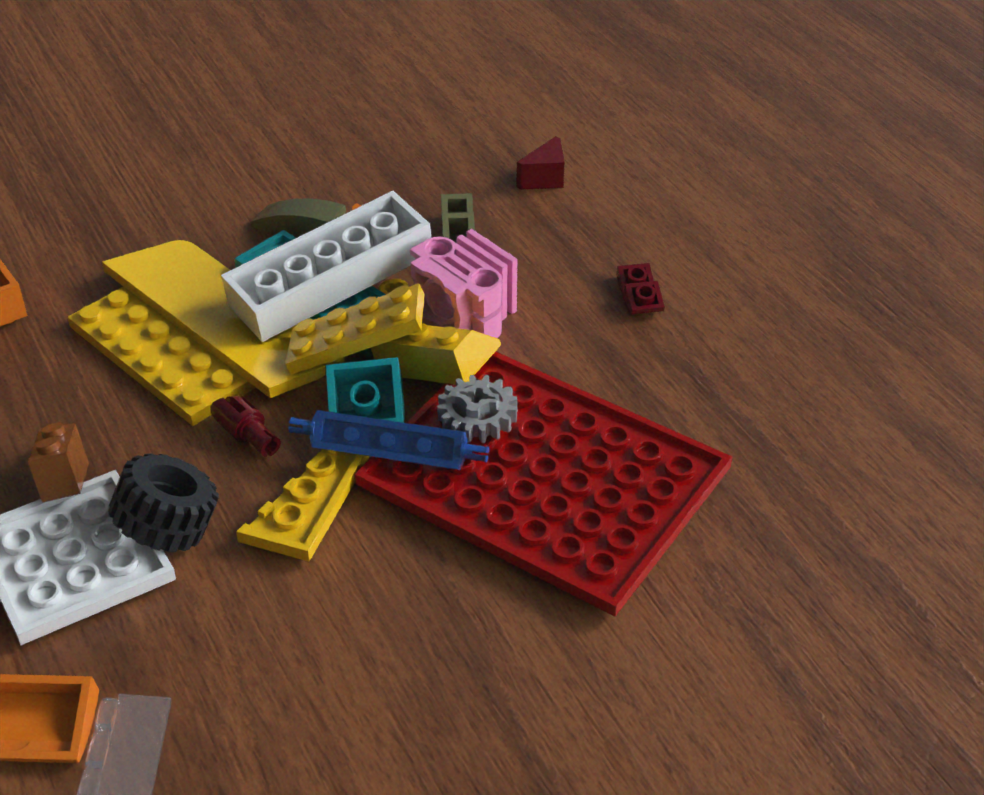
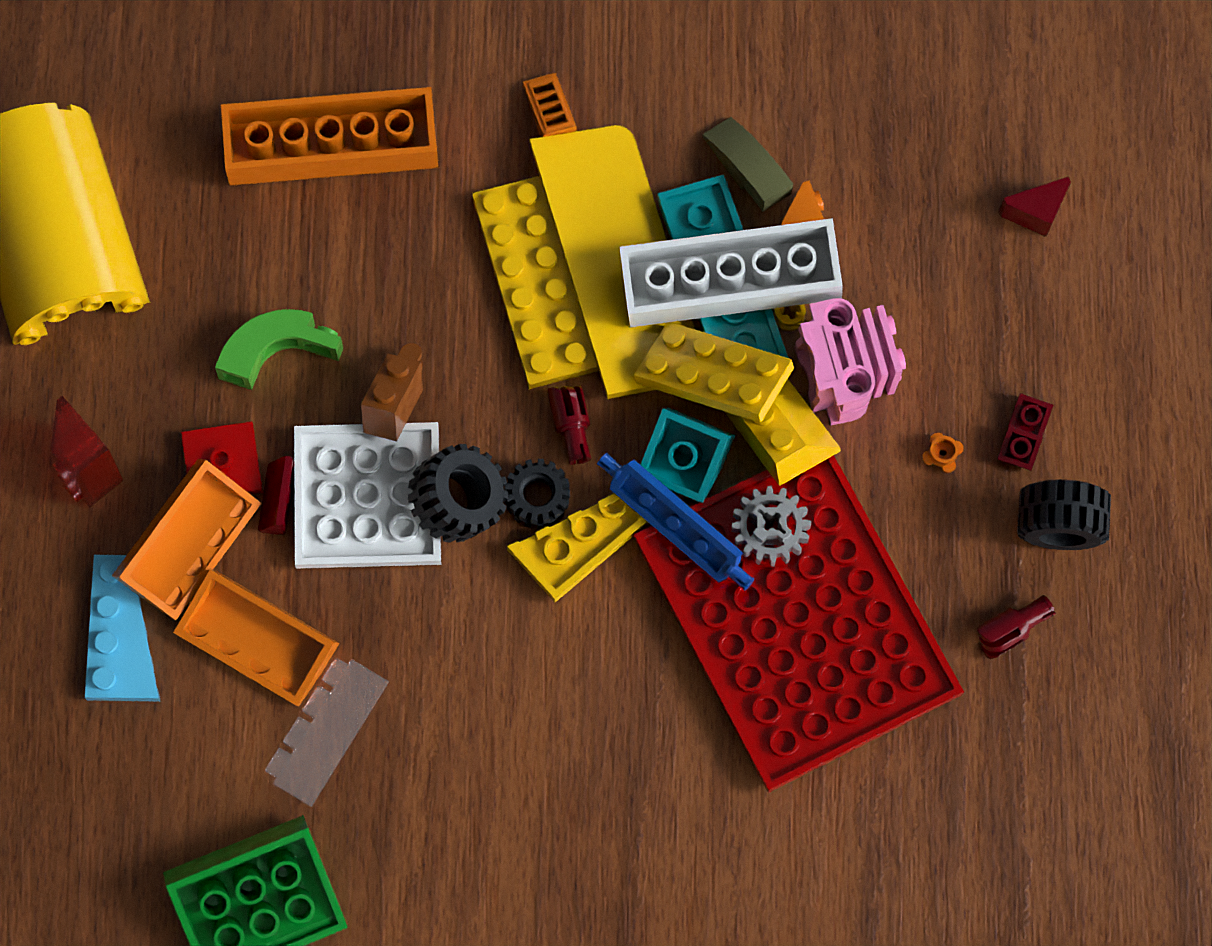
camera: 25 degrees right, 30 degrees up
(108, 245) = (568, 124): none -> orange slope
(244, 470) = (537, 514): none -> black tyre
(457, 215) = (893, 263): olive slope -> none
(584, 324) = (946, 443): none -> orange plate
(716, 306) = (1064, 514): none -> black tyre
(733, 405) = (1012, 626): none -> dark red arm

